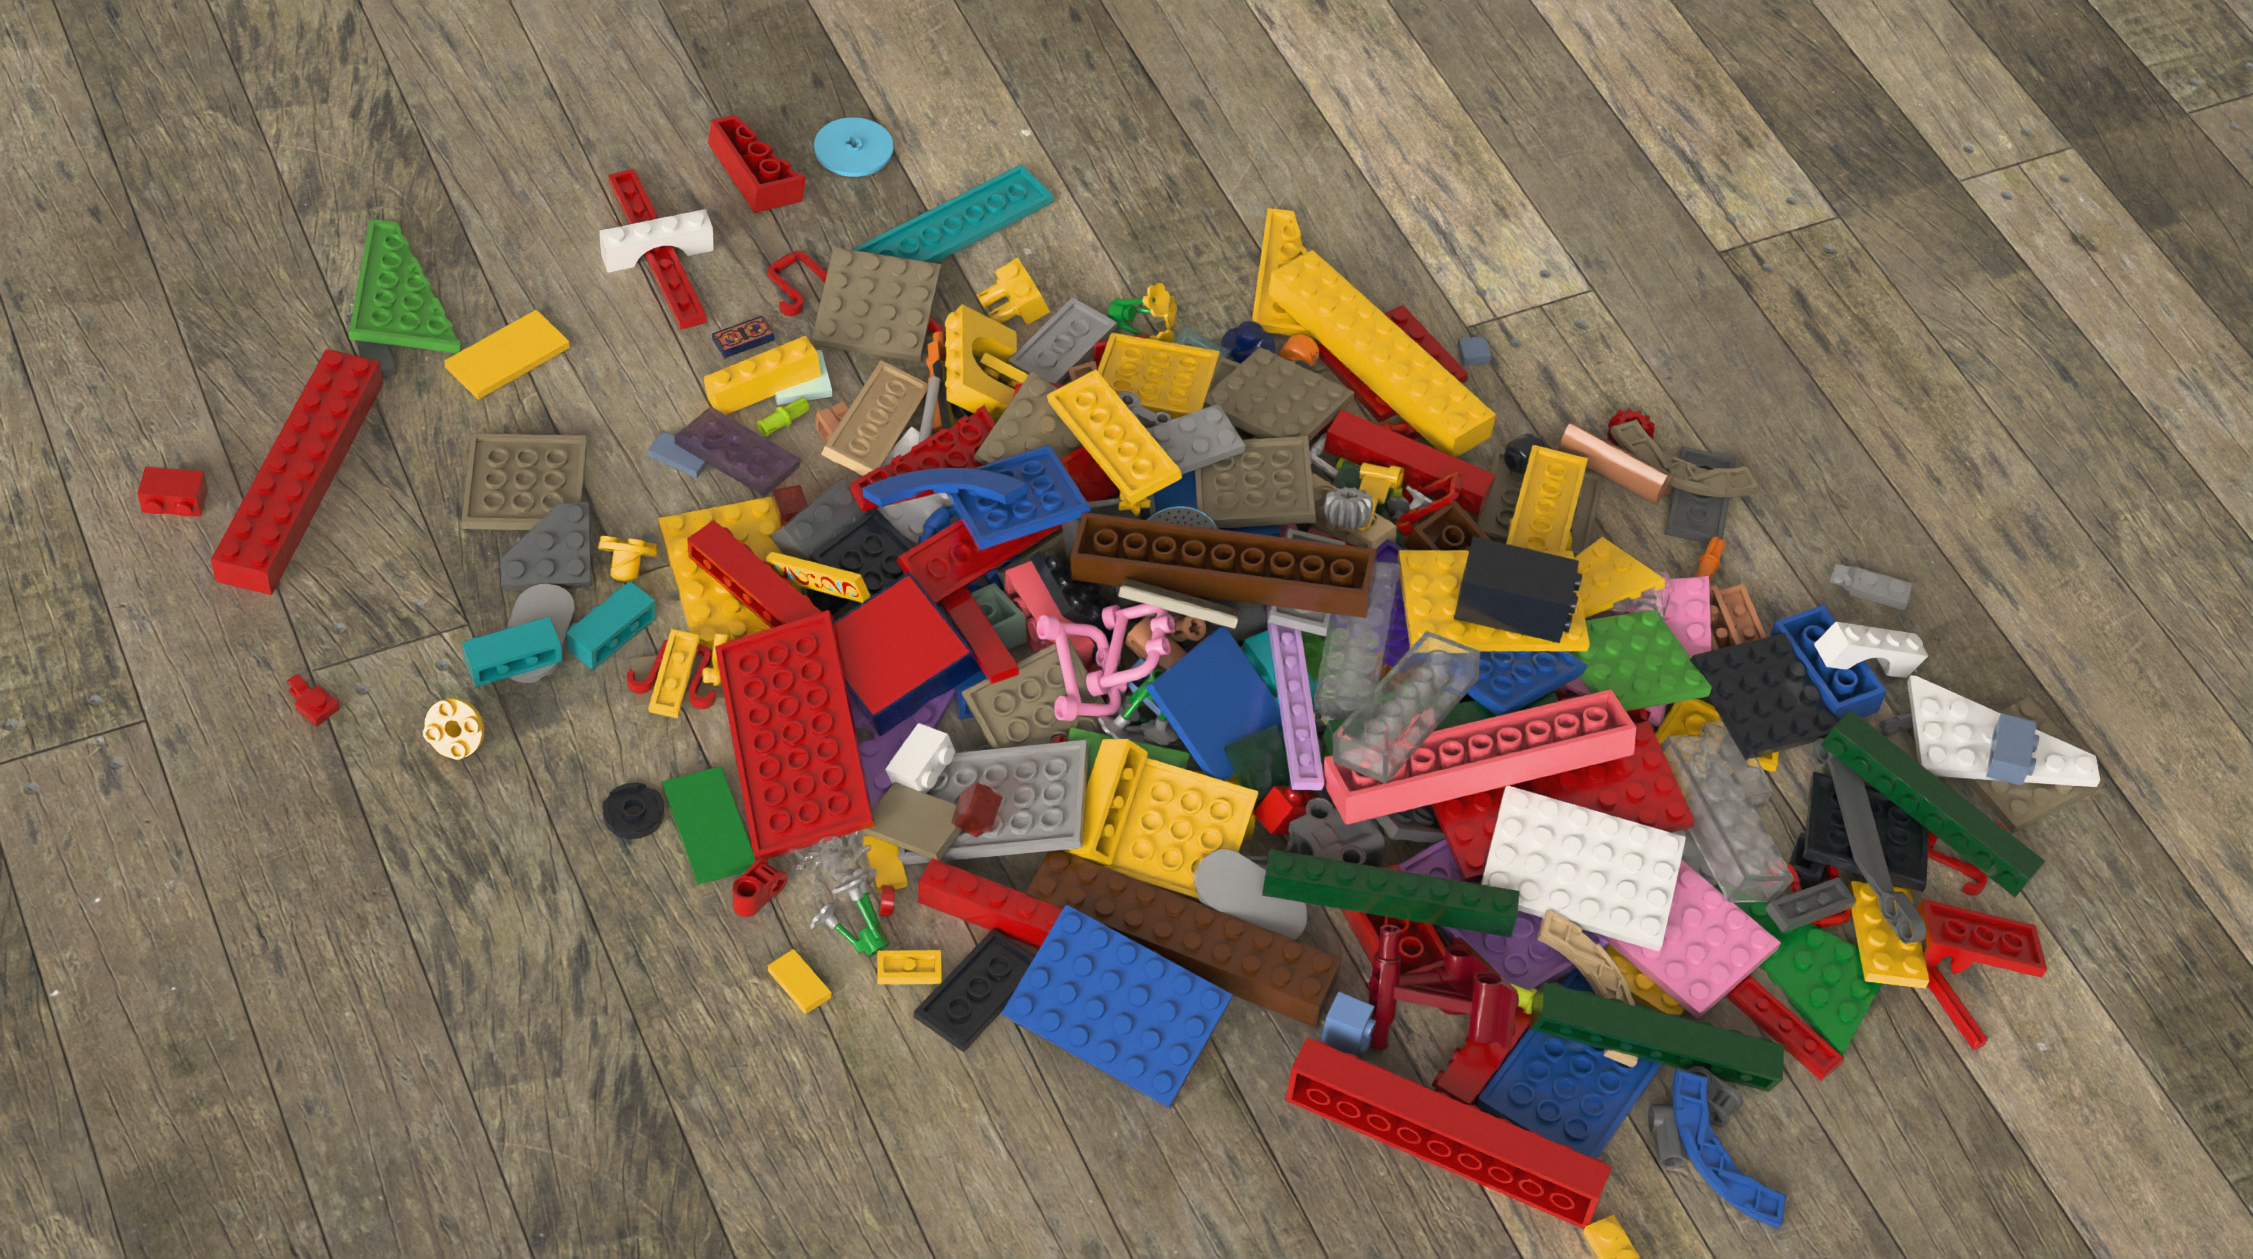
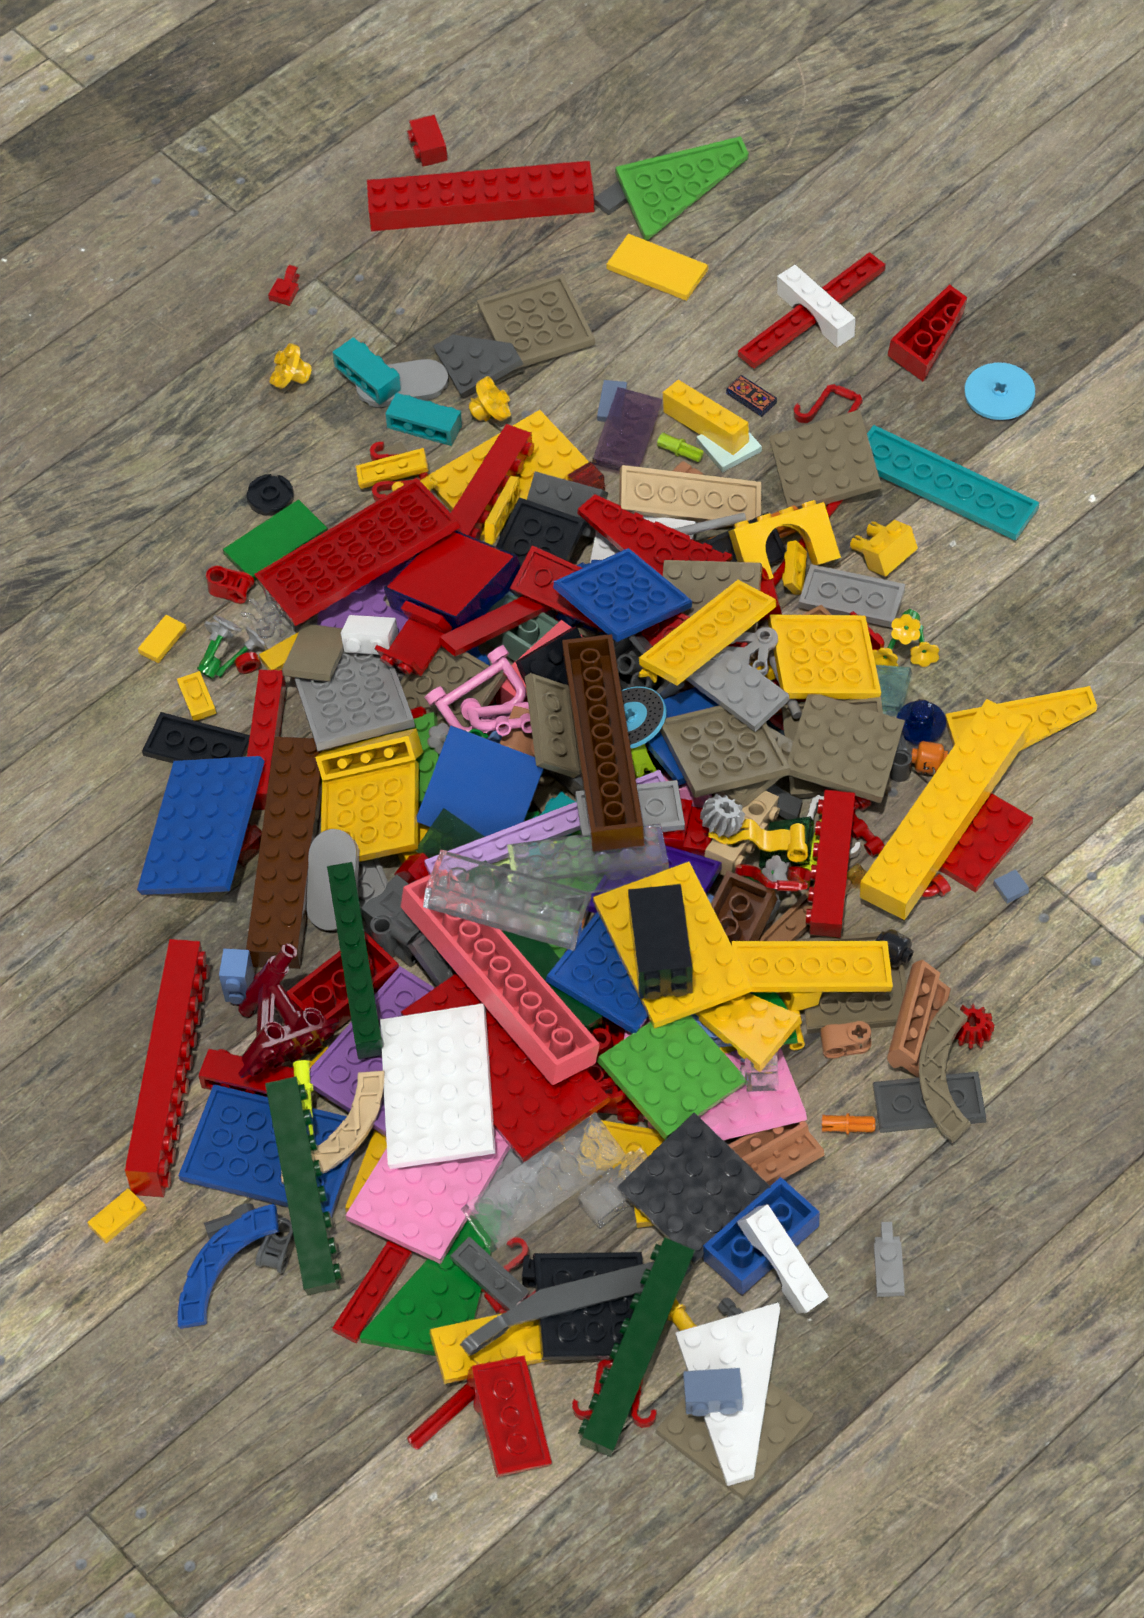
camera: 80 degrees right, 5 degrees up
(946, 480) = (616, 544): blue tile -> none
(966, 710) = (416, 641): none -> red panel
(976, 809) = (324, 675): clear red brick -> none
(1614, 523) = (843, 1039): none -> nougat piece

